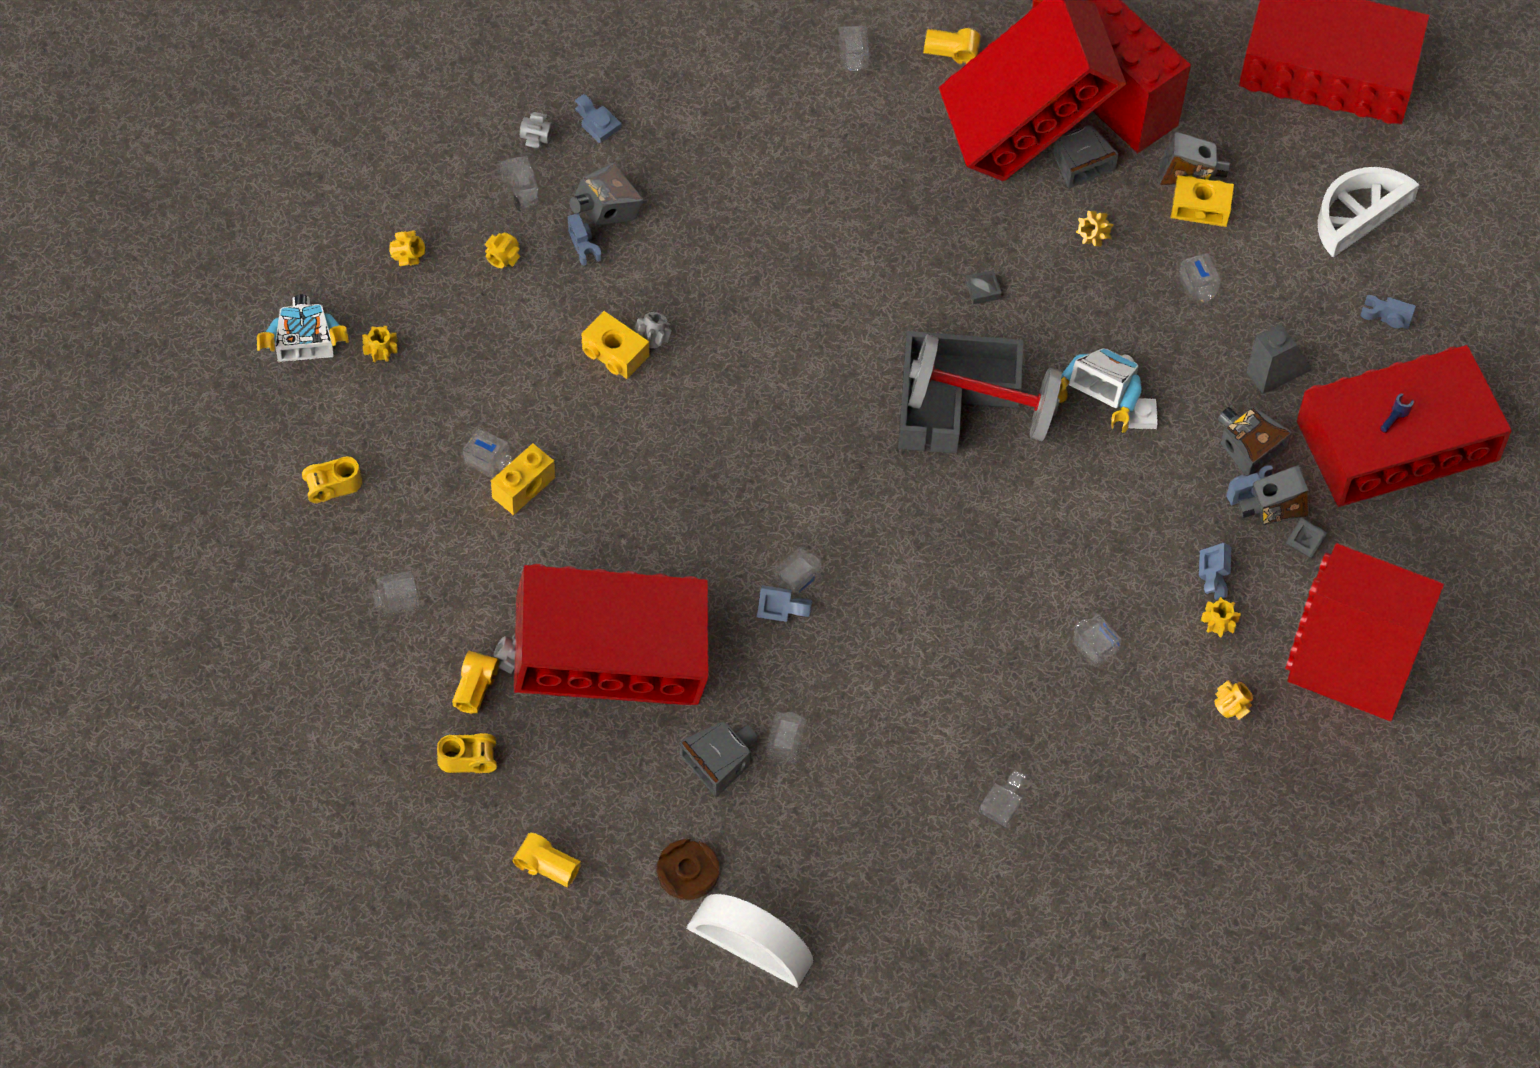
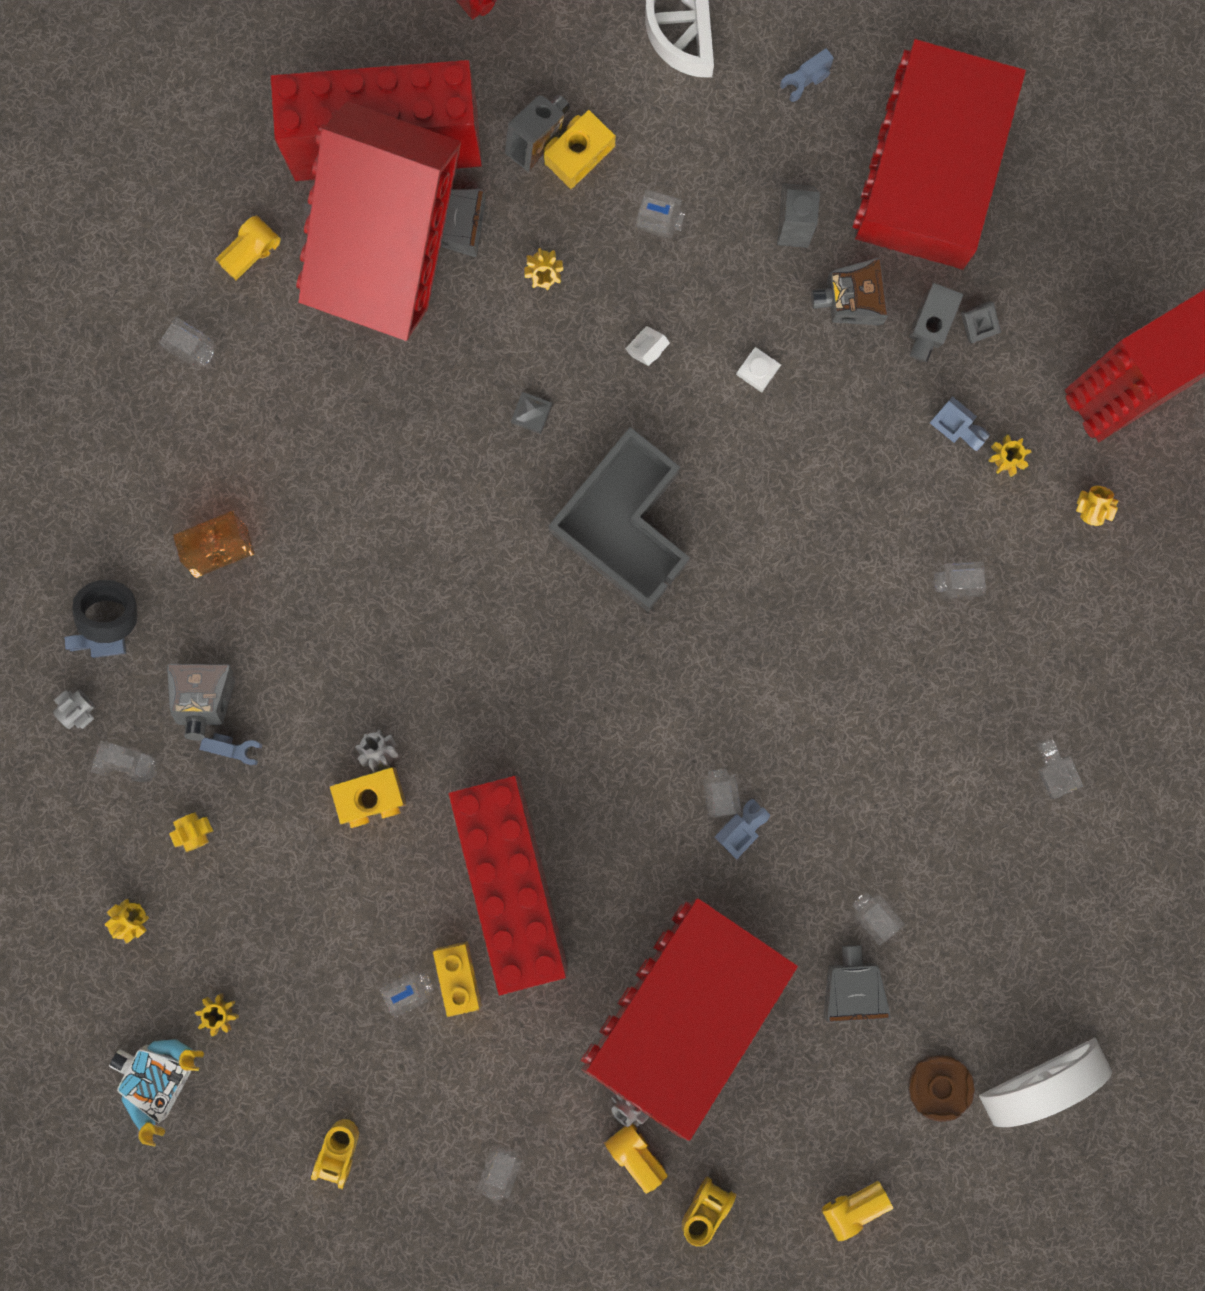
camera: 55 degrees left, 25 degrees up
(615, 117) = (104, 591): none -> black tyre
(623, 452) = (509, 885): none -> red brick
(722, 142) = (213, 544): none -> clear orange brick
(1044, 404) = (706, 456): light grey piece -> none
(1095, 329) = (647, 345): none -> white plate
(1106, 378) = (711, 378): white torso -> none
(1242, 486) = (898, 337): sand blue plate -> none
(1398, 410) = (944, 154): dark blue hand -> none

